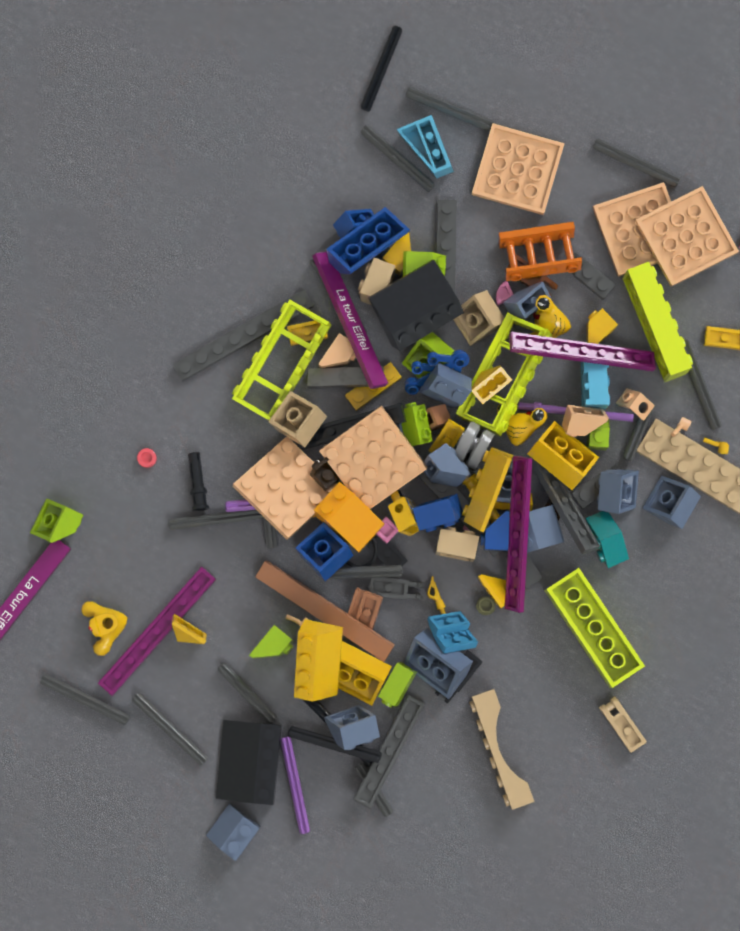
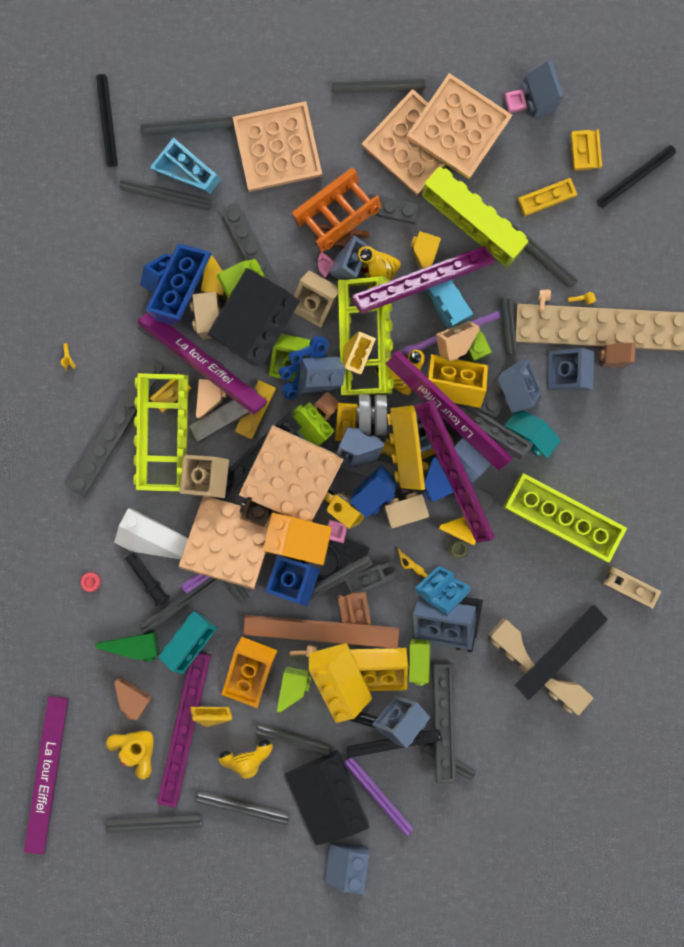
camera: 30 degrees left, 5 degrees up
(56, 521) = (41, 683): lime slope -> none
(126, 579) = (131, 699): none -> nougat slope
(156, 535) = (136, 647): none -> green slope
(196, 688) = (246, 763): none -> yellow head
(203, 556) = (187, 642): none -> teal brick
(219, 446) = (148, 536): none -> white wedge
(233, 254) = (67, 360): none -> yellow hand
(241, 612) = (249, 672): none -> light orange slope
(527, 745) = (560, 652): none -> black tile
(542, 477) = (449, 410): none -> magenta tile
(632, 399) = (489, 299): light nougat bracket -> none
(719, 510) = (617, 355): none -> nougat slope

